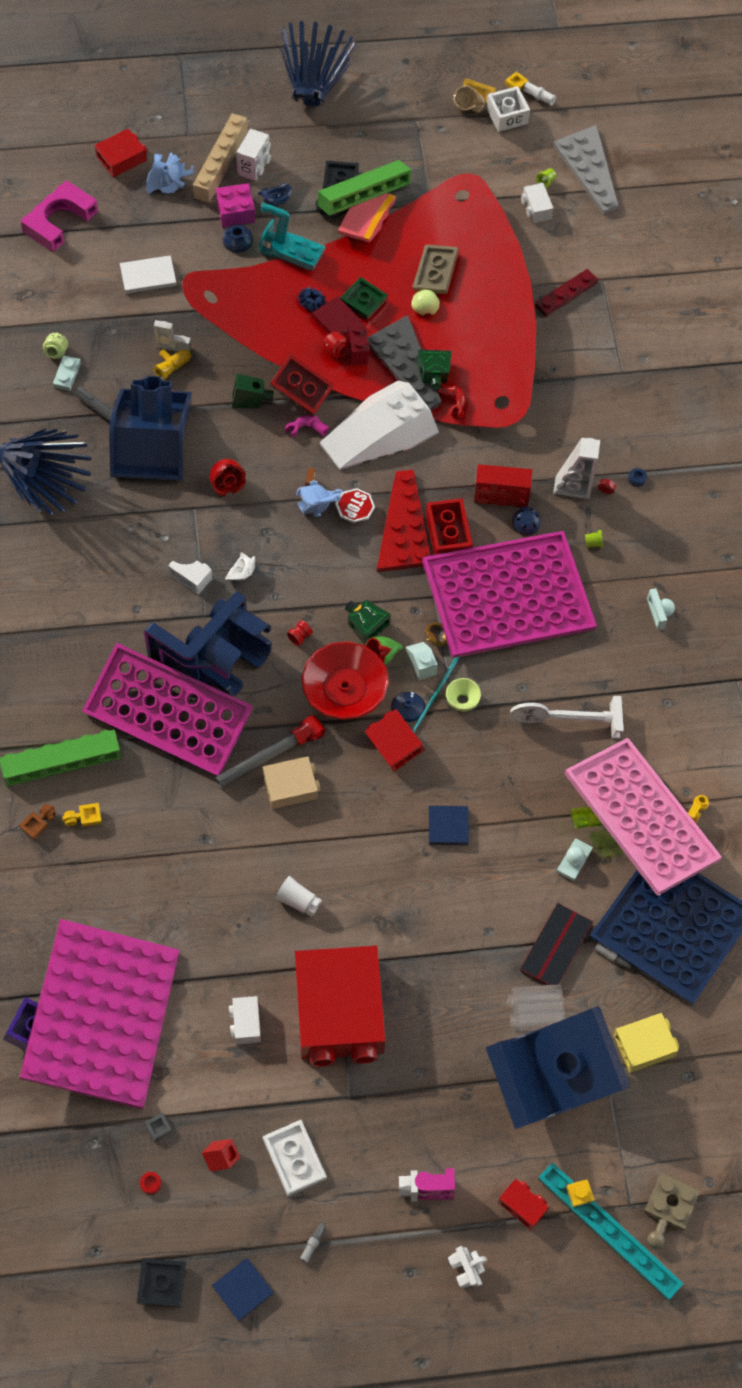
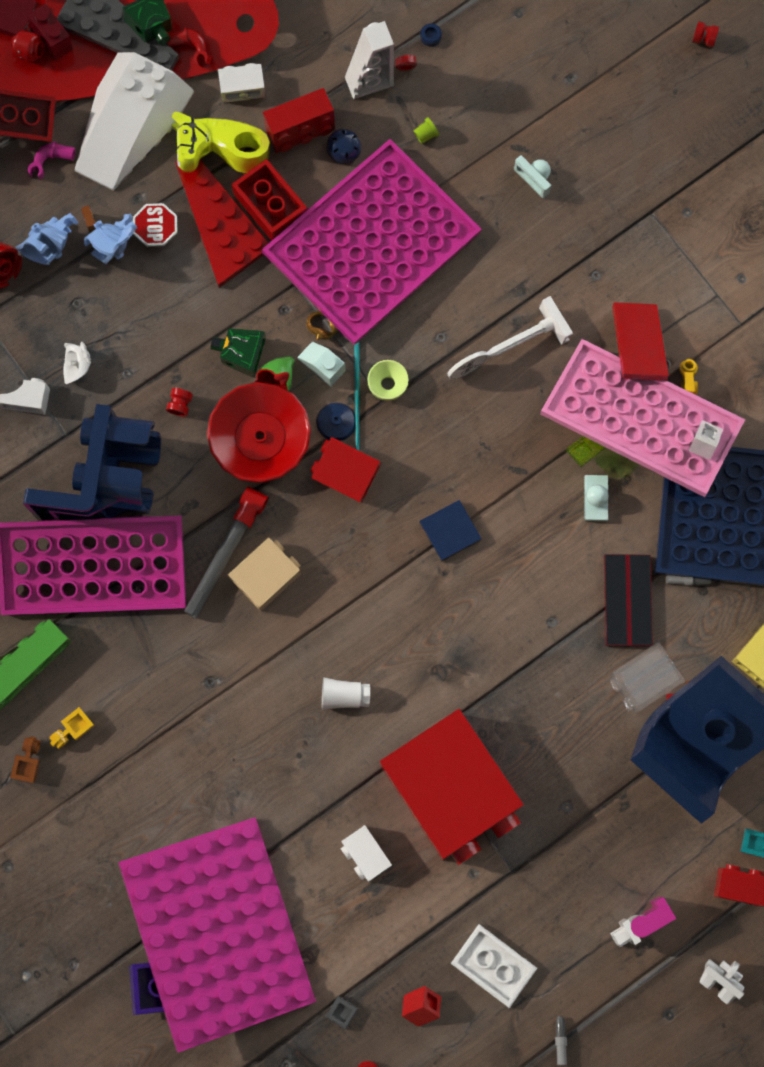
camera: 25 degrees left, 15 degrees up
(270, 477) = (47, 240): none -> light blue helmet
(439, 470) = (221, 136): none -> neon yellow animal
(476, 442) = (241, 82): none -> white brick
(672, 762) = (640, 341): none -> red tile
(680, 852) = (706, 440): none -> white slope

